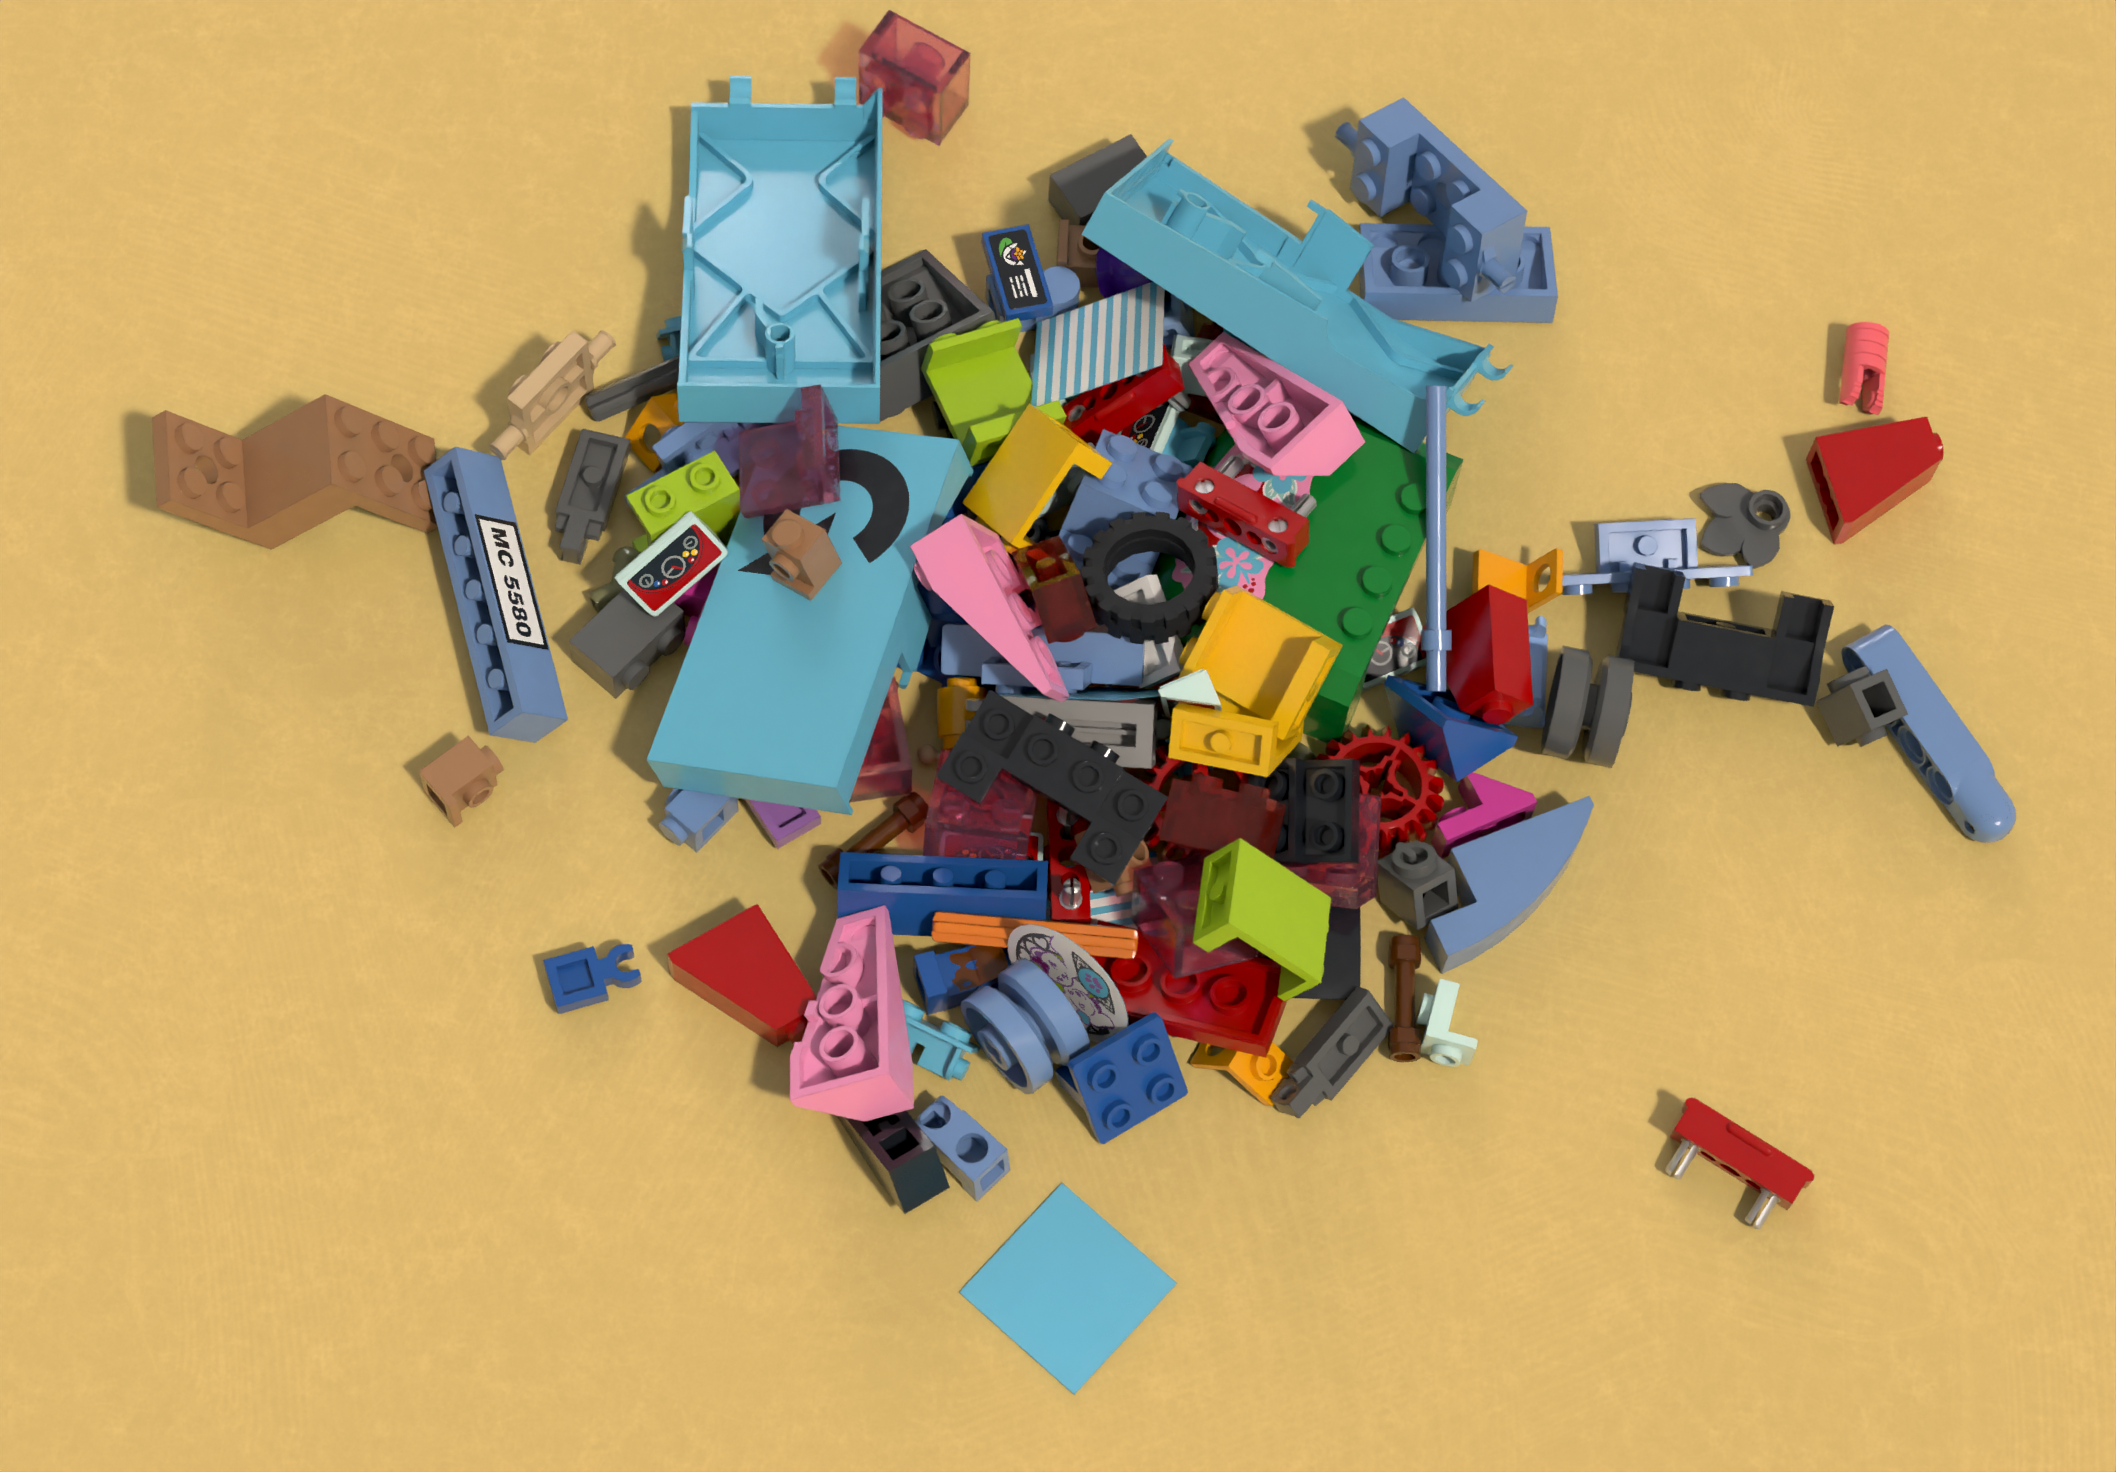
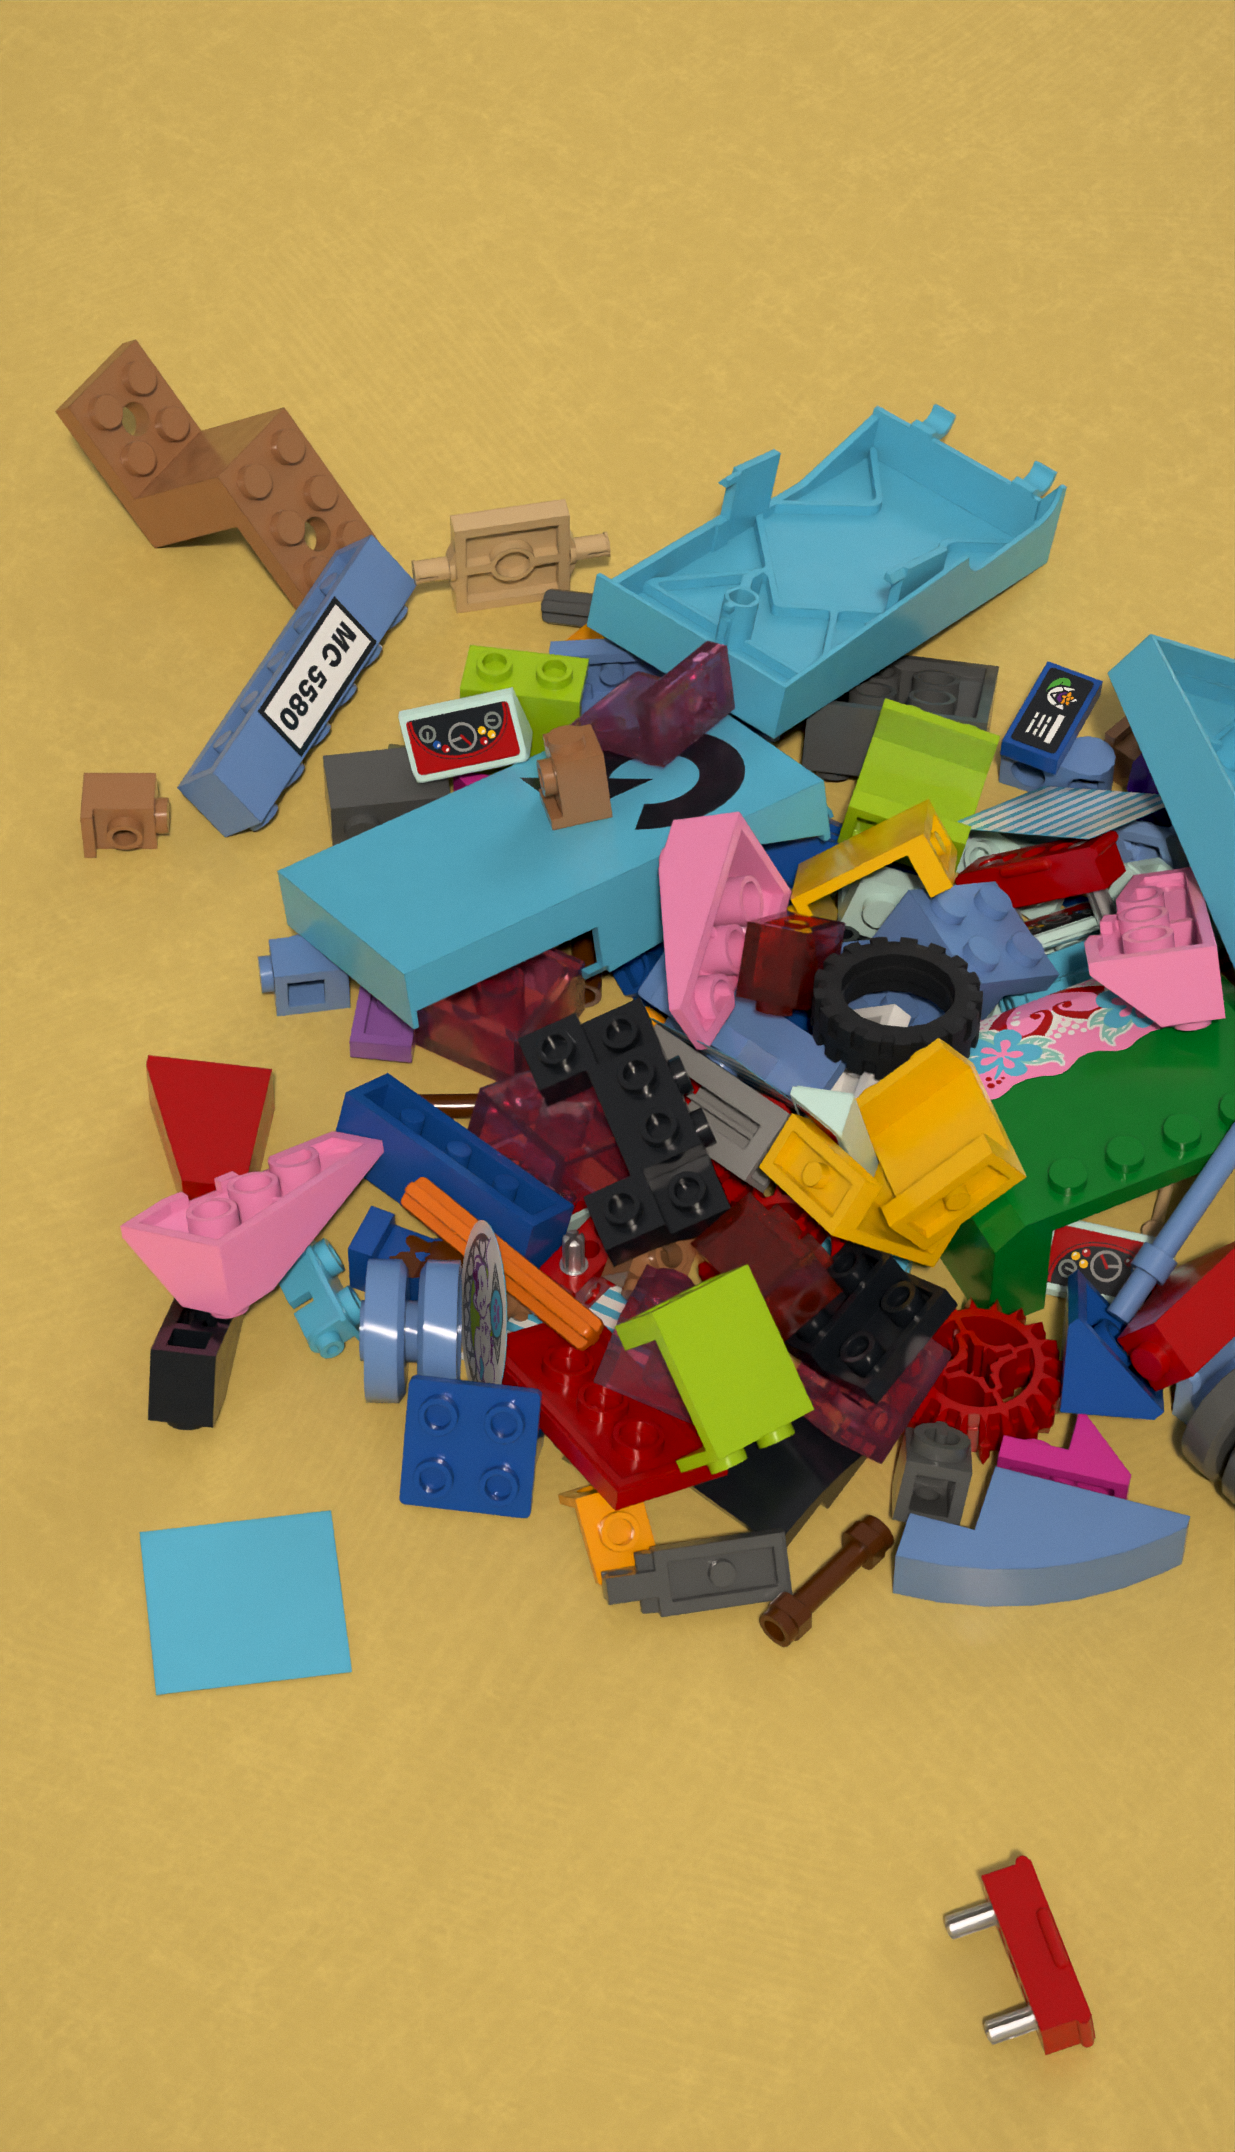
camera: 45 degrees right, 15 degrees down
(582, 979) = (67, 1036): blue plate -> none
(590, 491) = (443, 668): dark grey hinge -> none
(919, 77) = (1116, 507): clear pink brick -> none
(964, 1147) = (259, 1408): medium blue leg -> none
(1245, 513) = (1046, 1012): red piece -> none
(1436, 1014) = (835, 1619): light aqua bracket -> none

